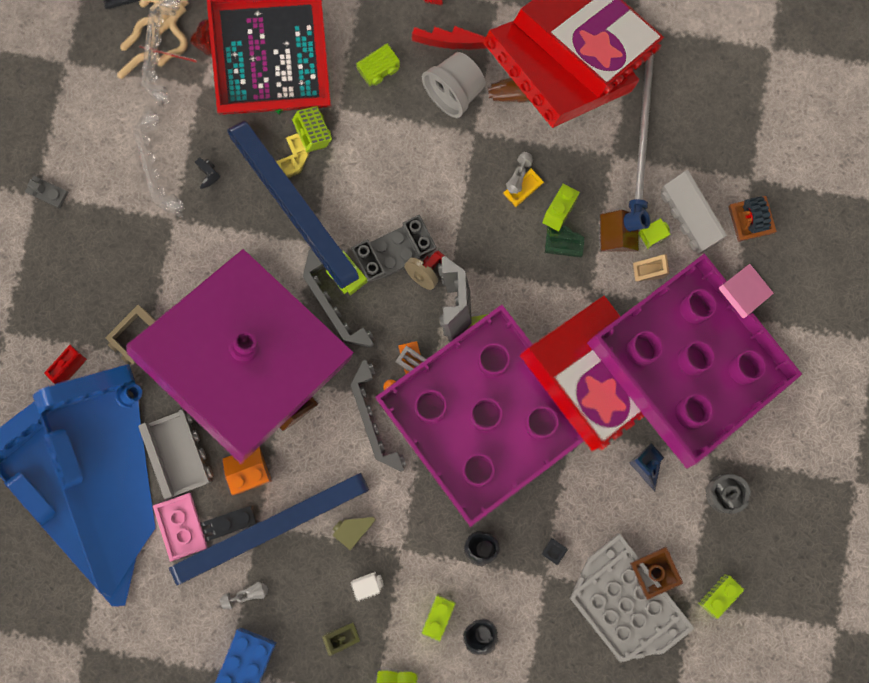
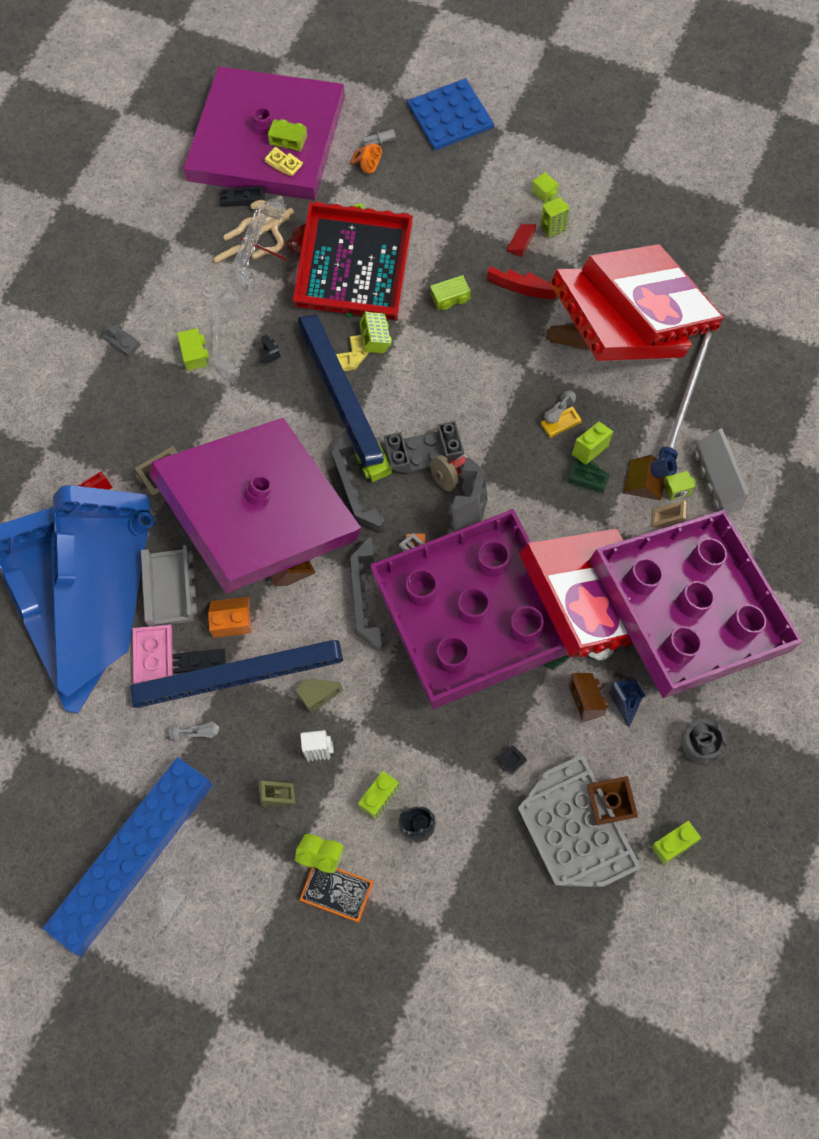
camera: 20 degrees right, 15 degrees down
(126, 188) = (192, 349): none -> lime brick
(454, 83) = (515, 317): light grey piece -> none
(481, 548) = (439, 737): black hair -> none
(612, 475) = (587, 696): none -> reddish brown slope
(746, 291) = (760, 552): bright pink tile -> none
(752, 218) = (780, 490): plate -> none

